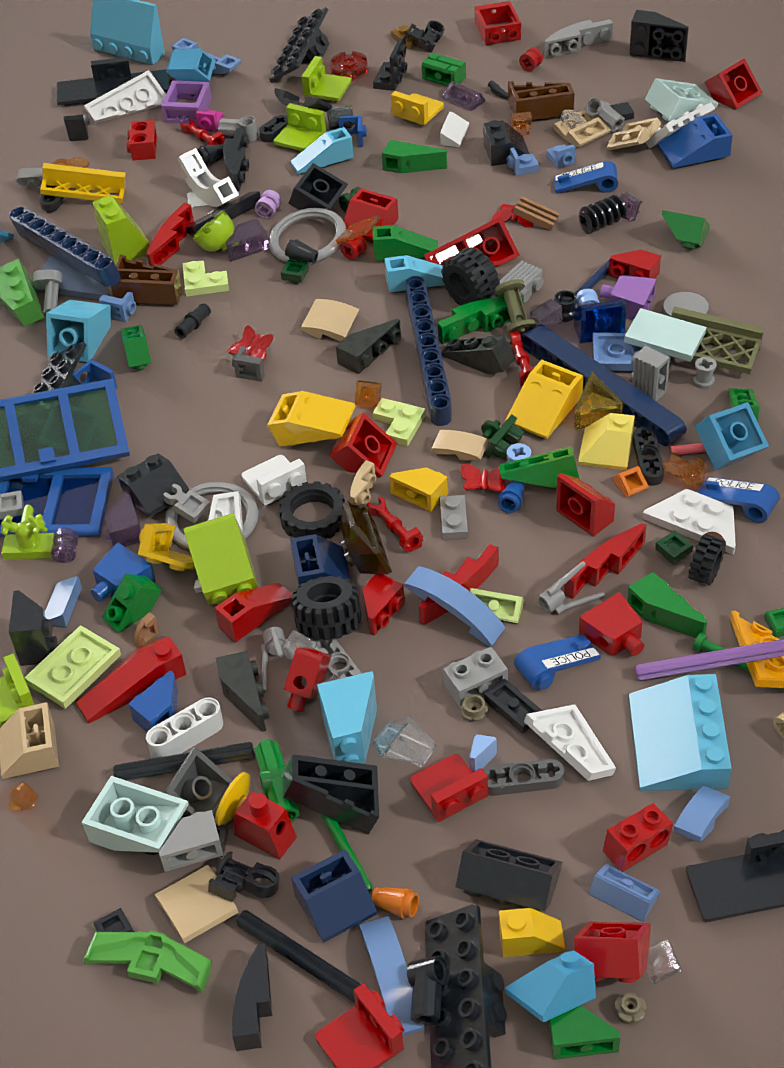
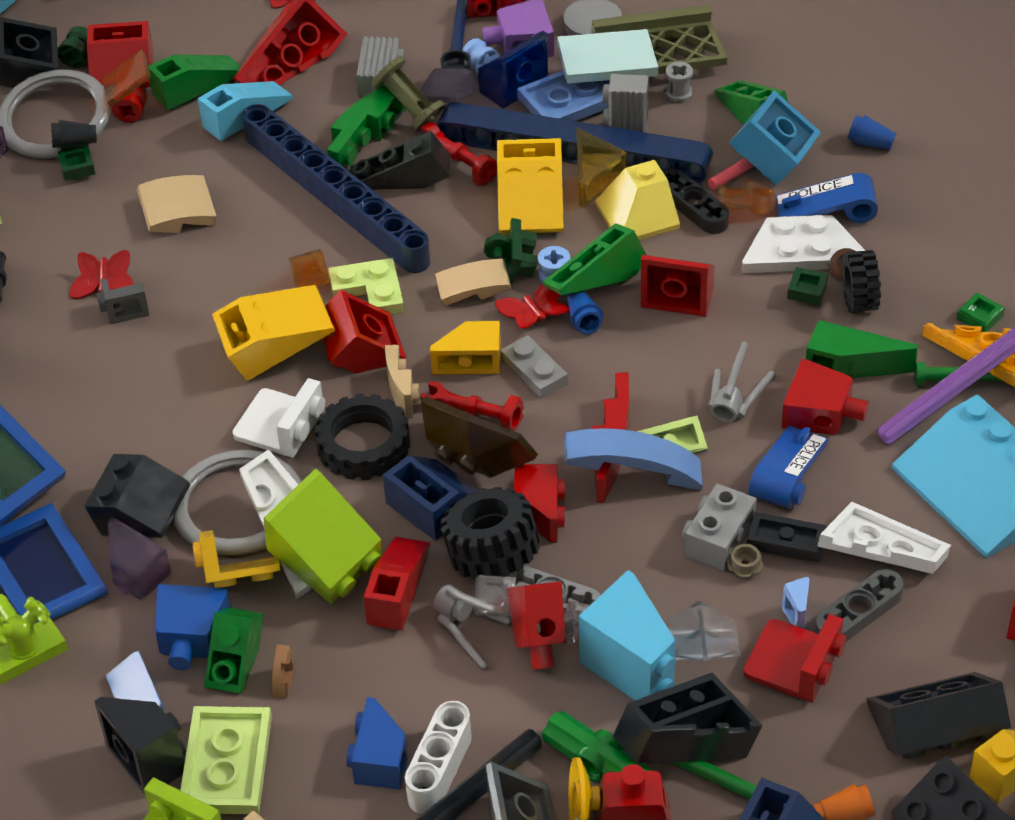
camera: 35 degrees left, 0 degrees up
(64, 545) = (78, 624): clear purple wheel -> none
(132, 678) = (313, 730): red wedge -> none
(187, 505) = (208, 497): light grey plate -> none
(240, 688) = (461, 674): pearl dark grey slope -> none
(365, 346) = (252, 216): pearl dark grey slope -> none
(469, 276) = (324, 80): black tyre -> none
(609, 556) = (752, 327): red slope -> none
(631, 481) = (697, 237): orange slope -> none

